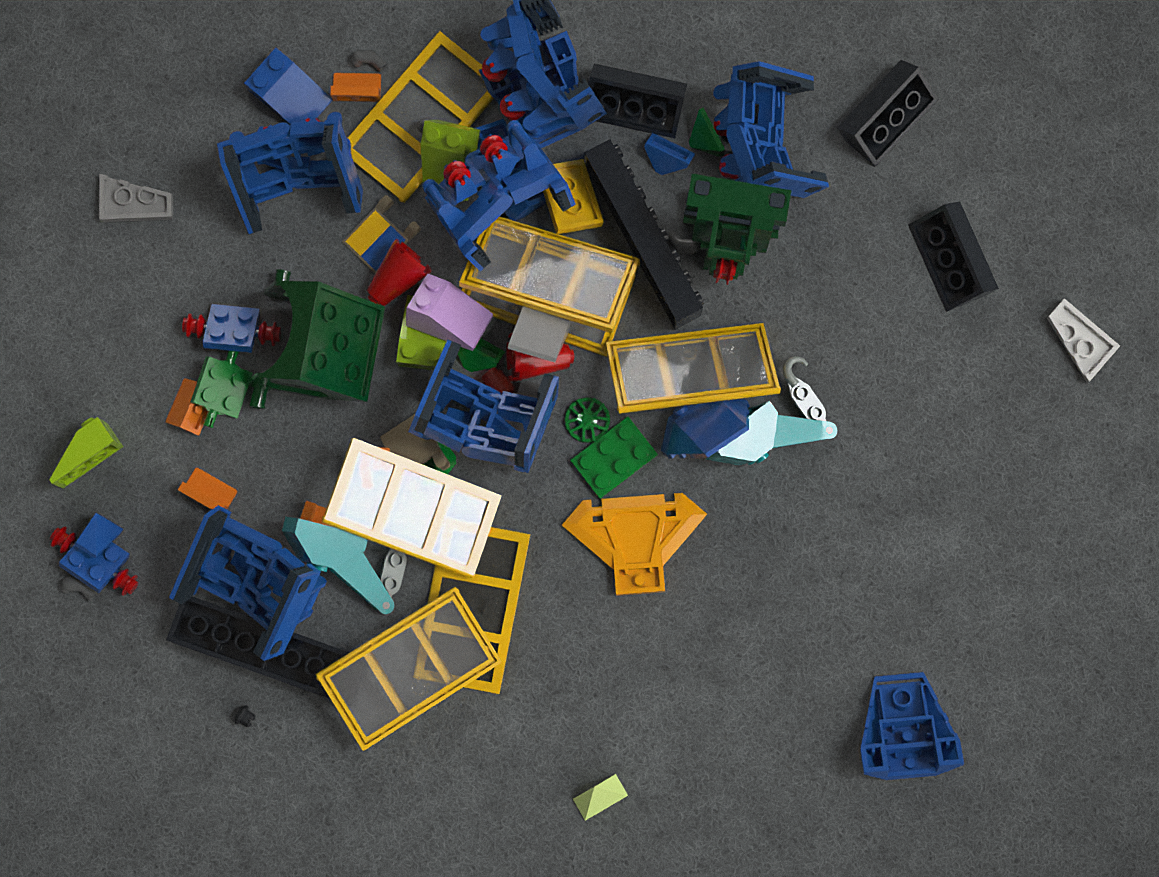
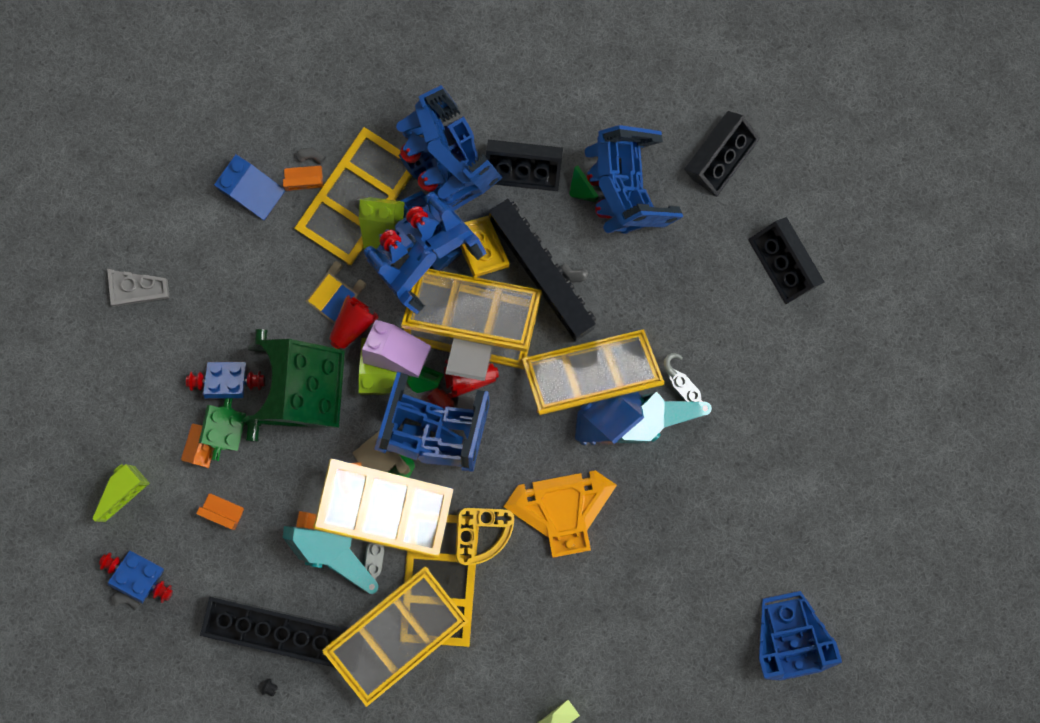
camera: 10 degrees left, 0 degrees up
(98, 535) = (136, 557): blue slope -> none
(259, 563) = (267, 566): blue container -> none
(274, 148) = (243, 233): blue container -> none
(525, 538) = (476, 521): none -> yellow beam
(587, 419) = (514, 421): green wheel -> none
(614, 457) = (538, 448): green plate -> none
(666, 155) = (553, 206): blue slope -> none
(733, 221) = (622, 242): dark green container -> none
(1082, 339) = (894, 314): white wing -> none

